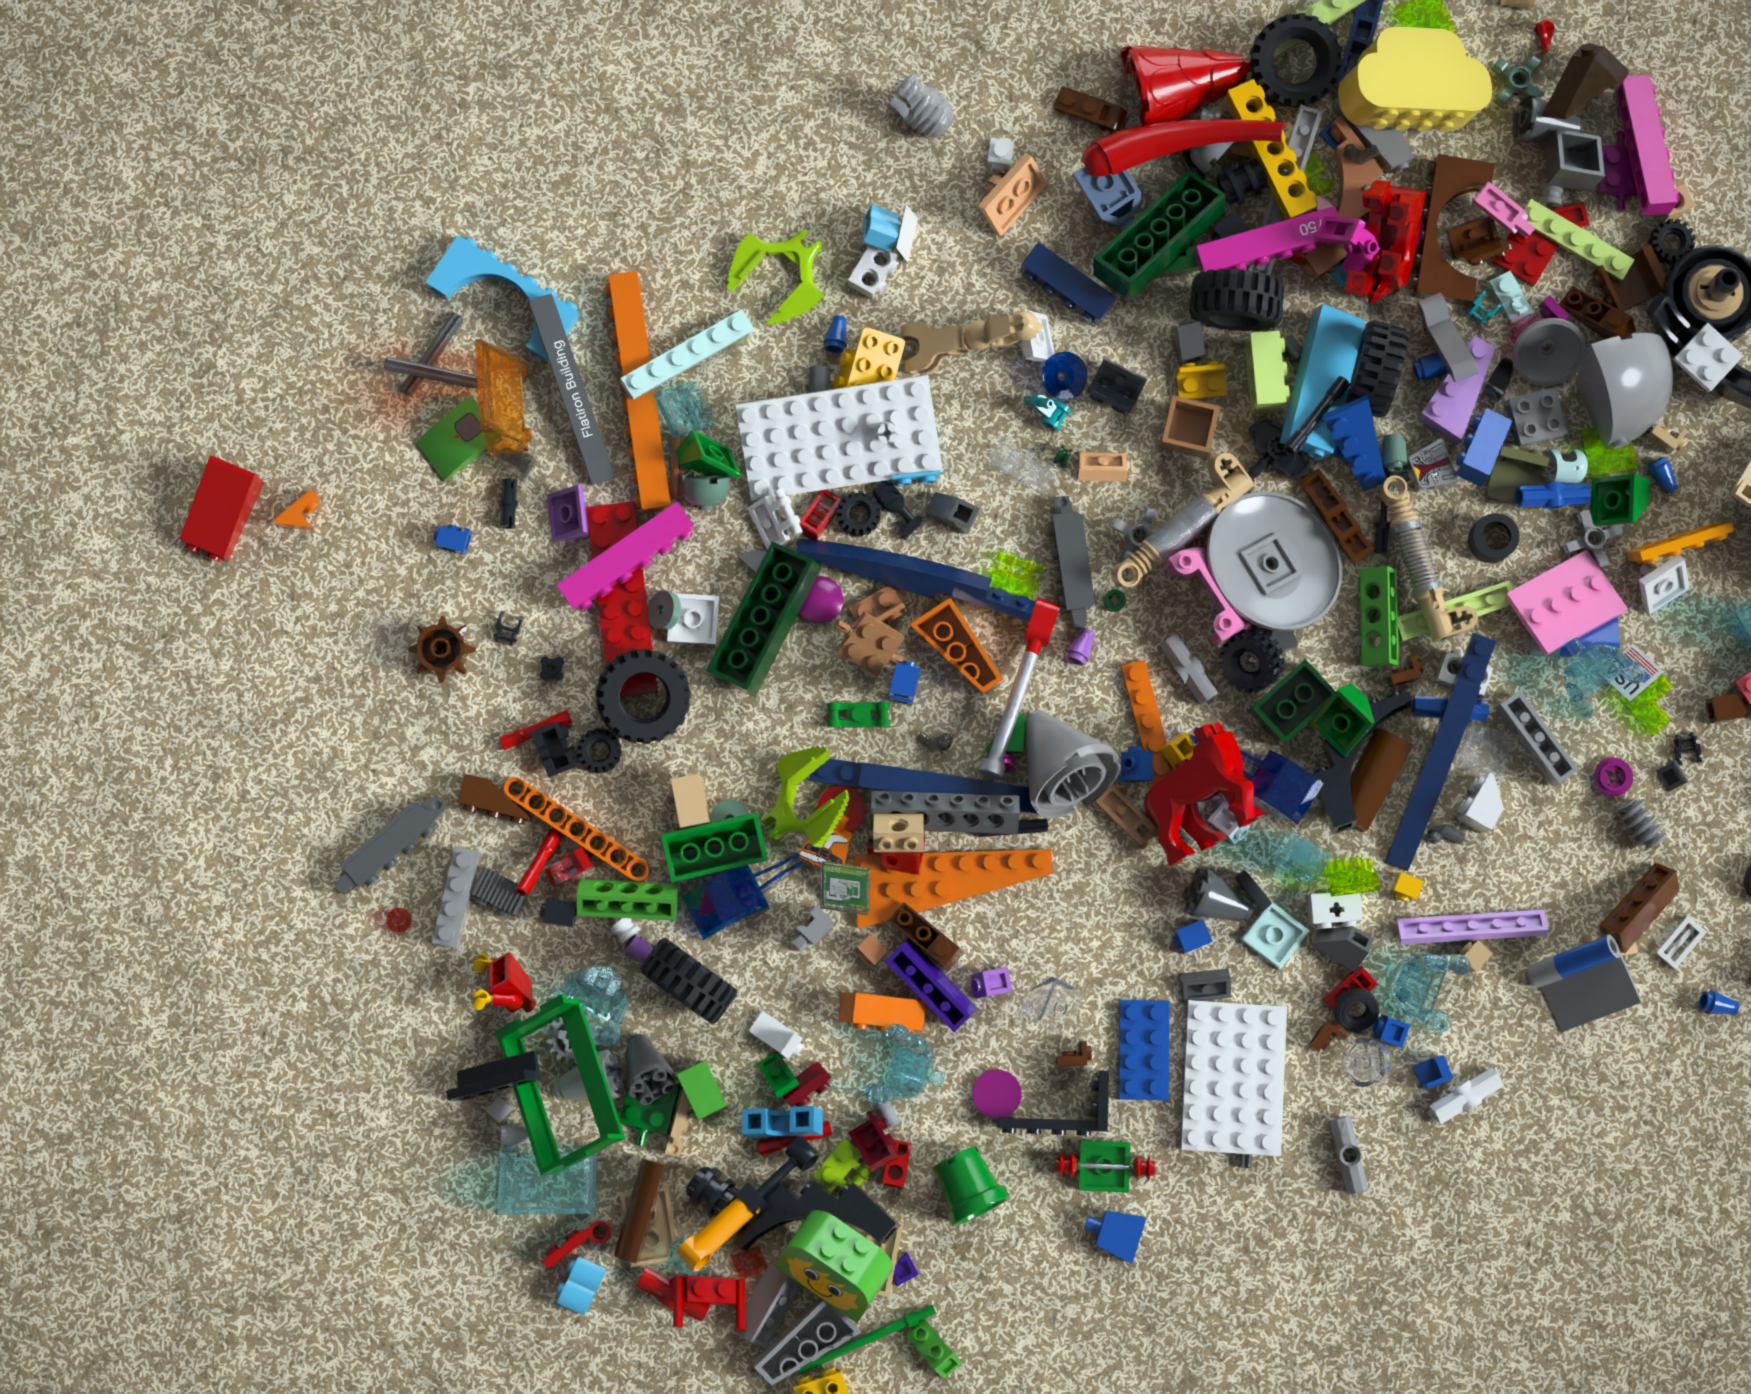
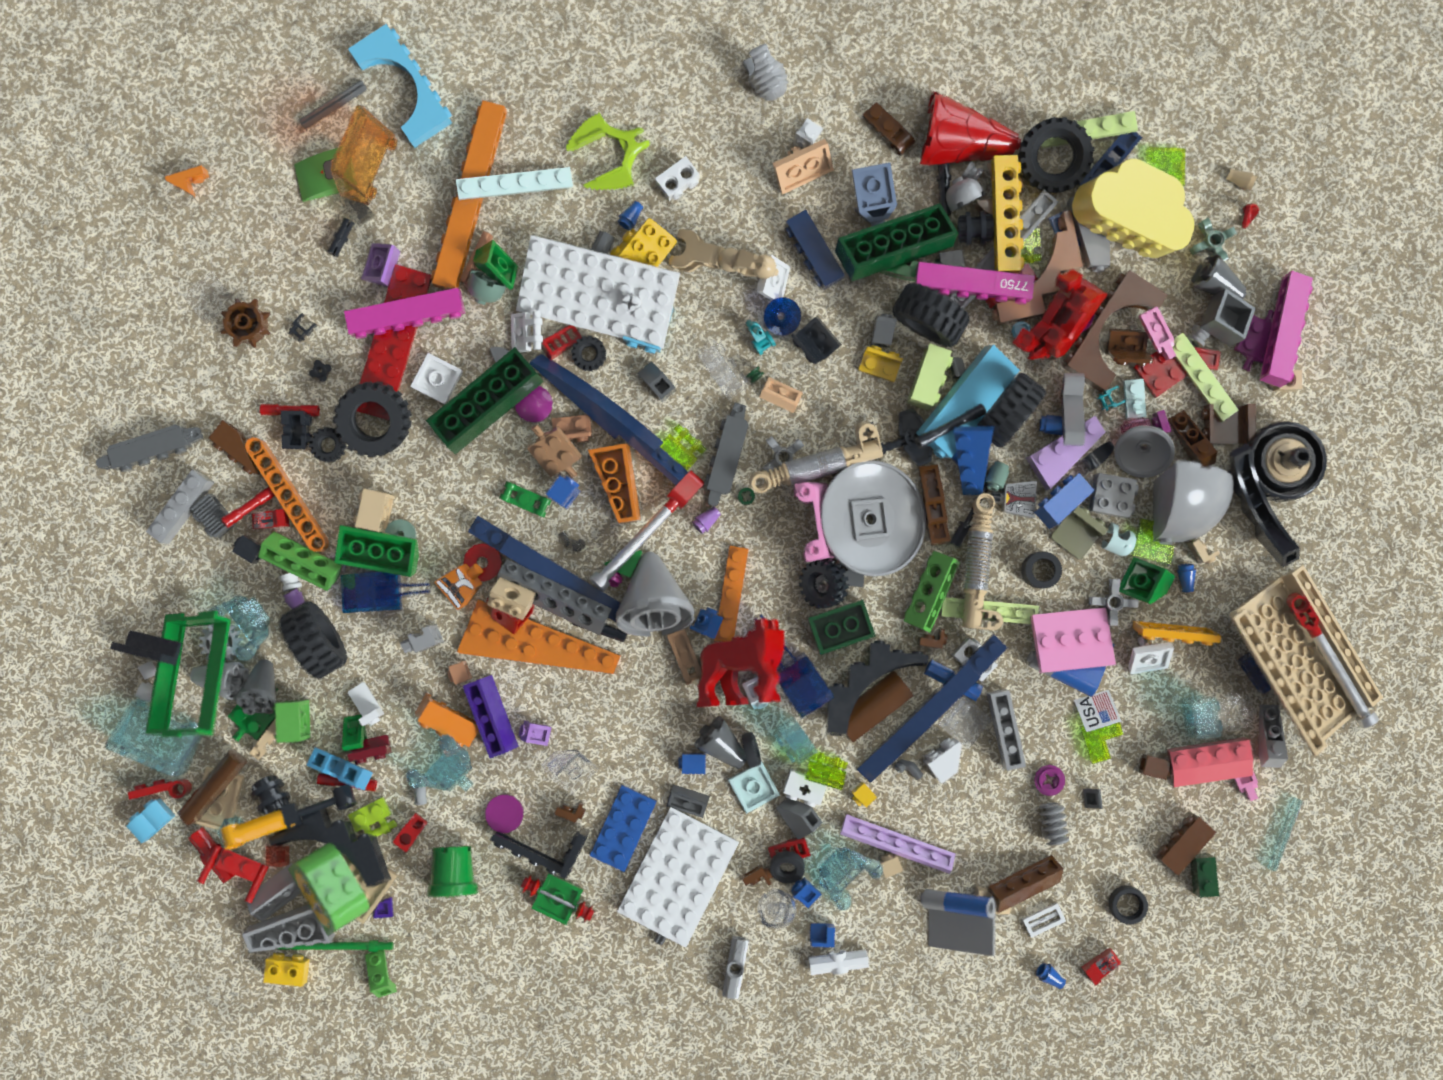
camera: 25 degrees right, 5 degrees up
(220, 509) = (131, 152): red slope -> none
(398, 920) = (134, 504): clear red plate -> none
(430, 372) = (318, 113): dark grey axle -> none
(452, 538) = (289, 246): blue brick -> none
(506, 984) = (186, 586): red torso -> none
(571, 389) = (420, 172): dark grey tile -> none
(664, 610) = (417, 363): sand green piece -> none
(685, 409) = (496, 222): clear light blue slope -> none
(820, 824) = (456, 568): lime piece -> none
(844, 888) = (458, 620): clear tile -> none
(873, 1143) = (399, 811): dark red bracket -> none
(881, 228) = (696, 150): medium azure brick -> none
(893, 501) = (618, 355): black piece -> none
(907, 233) = (713, 162): white sticker -> none
(926, 936) = (502, 680): reddish brown slope -> none
(1117, 1233) = (545, 950): blue torso -> none
(1143, 143) = (914, 168): red animal -> none
(1178, 749) = (742, 624): yellow plate -> none
(1189, 426) = (856, 393): medium nougat piece -> none
(1189, 669) = (777, 569): light grey piece -> none
(1344, 719) = (871, 656): green slope -> none
(1356, 240) = (1039, 310): dark pink tile -> none
(1358, 156) = (1066, 243): clear smoke arm -> none
(1552, 495) = (1098, 557): blue piece -> none
(1585, 77) = (1266, 258): dark brown wedge -> none
(1593, 669) = (1070, 698): clear light blue torso -> none
(1677, 229) = (1282, 403): black tyre -> none
(1694, 747) = (1107, 781): black piece -> none
(1708, 357) = (1259, 506): white plate -> none

